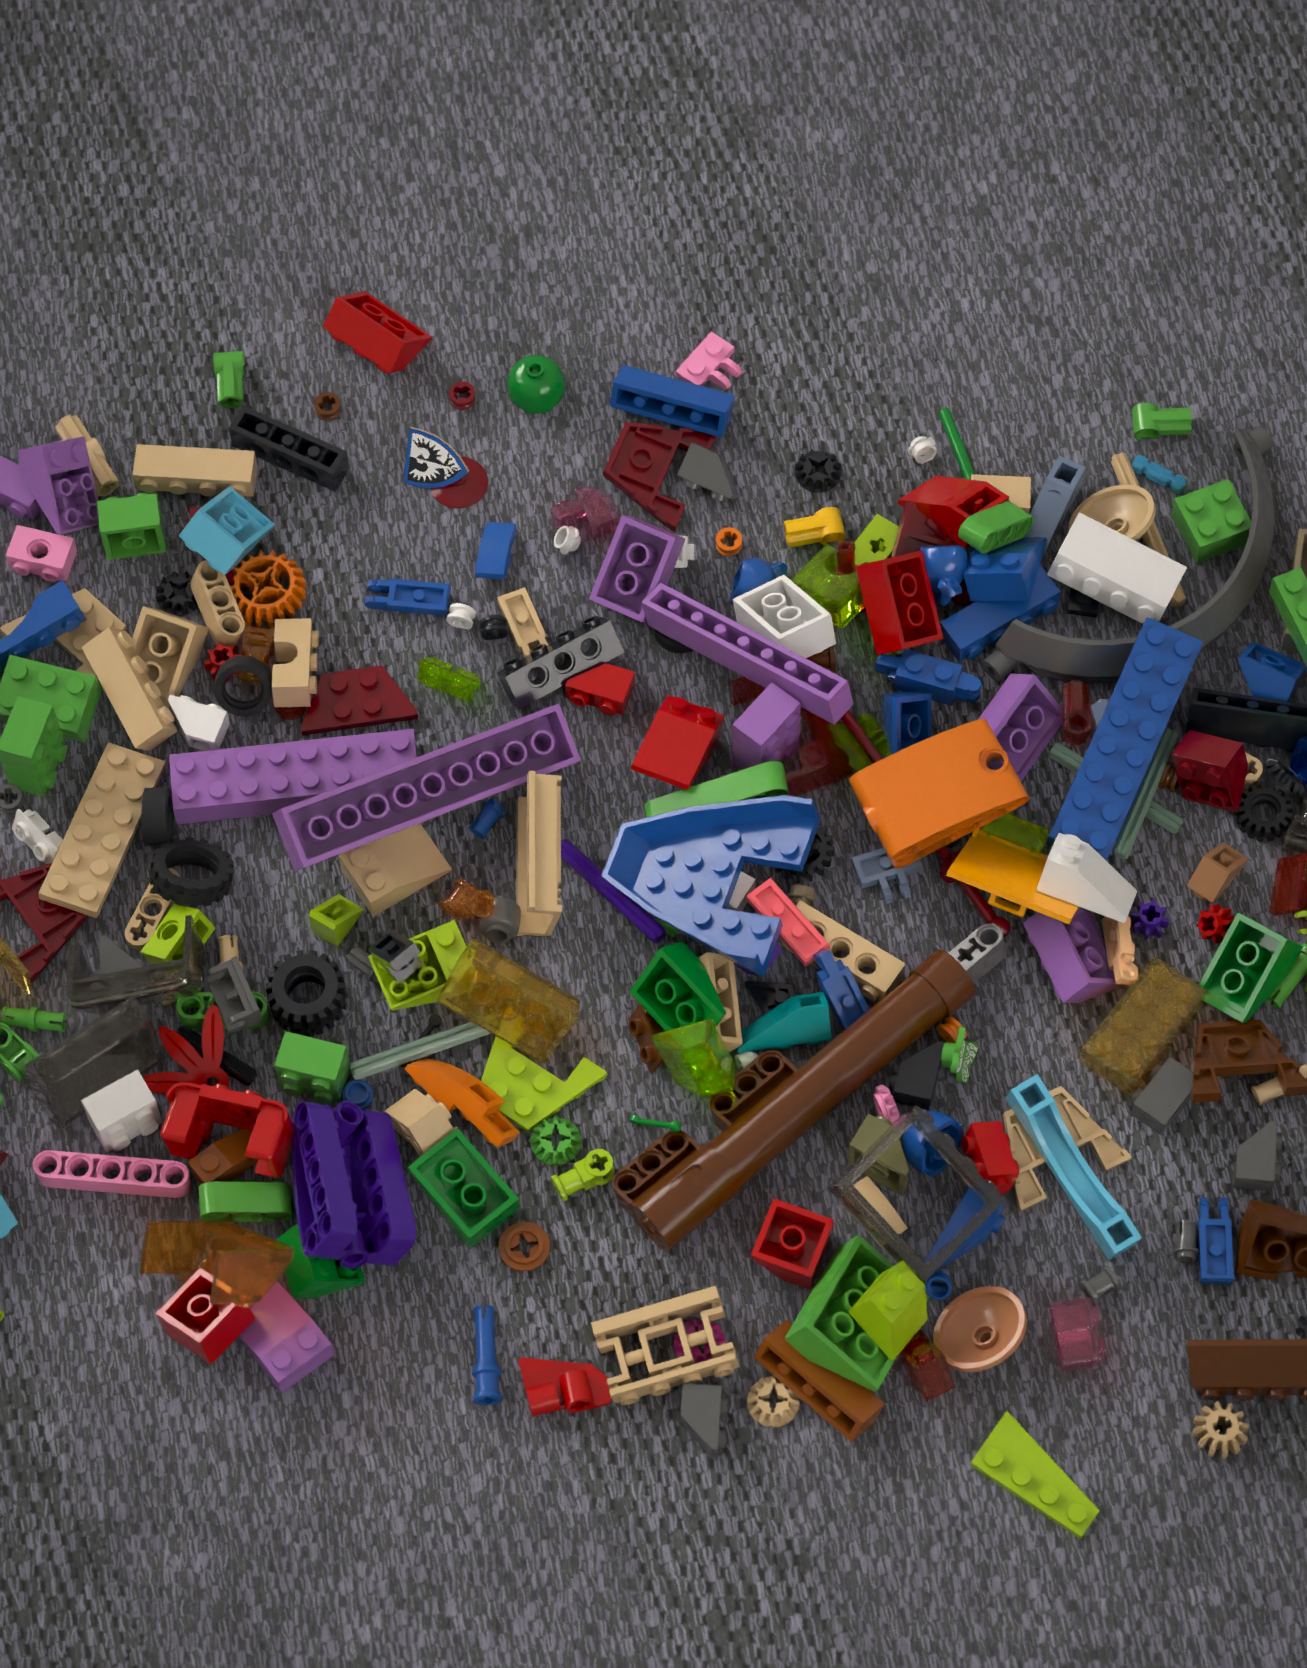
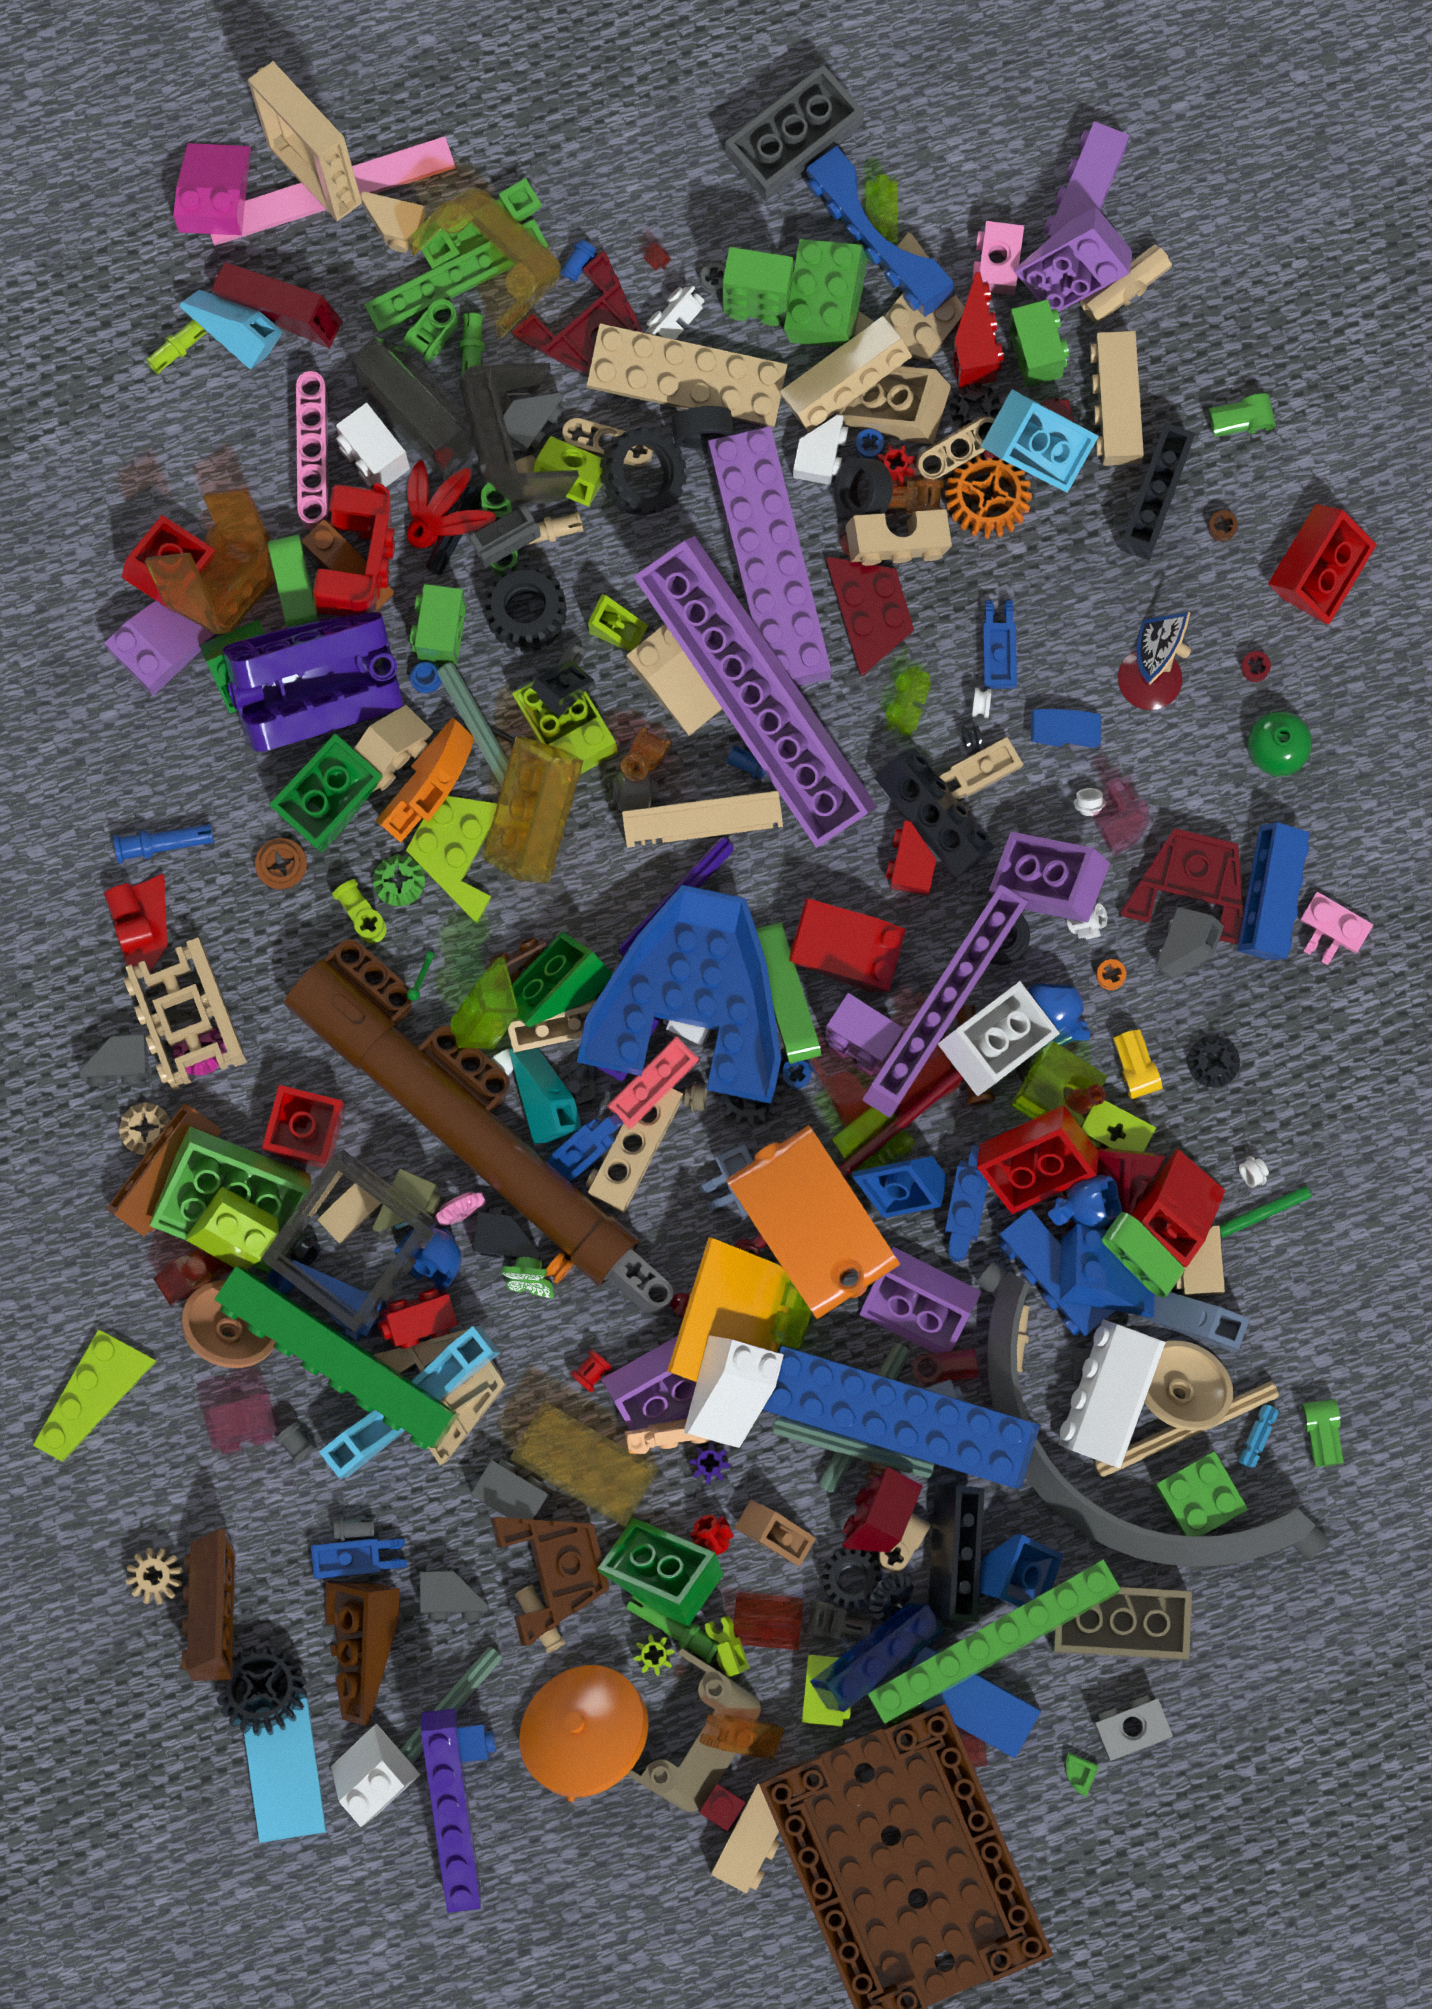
camera: 85 degrees right, 15 degrees up
(116, 576) = (975, 351): none -> red slope
(201, 676) = (871, 433): none -> blue bush
(1024, 1226) = (336, 1357): none -> green brick
(1052, 1013) = (591, 1371): none -> red bush

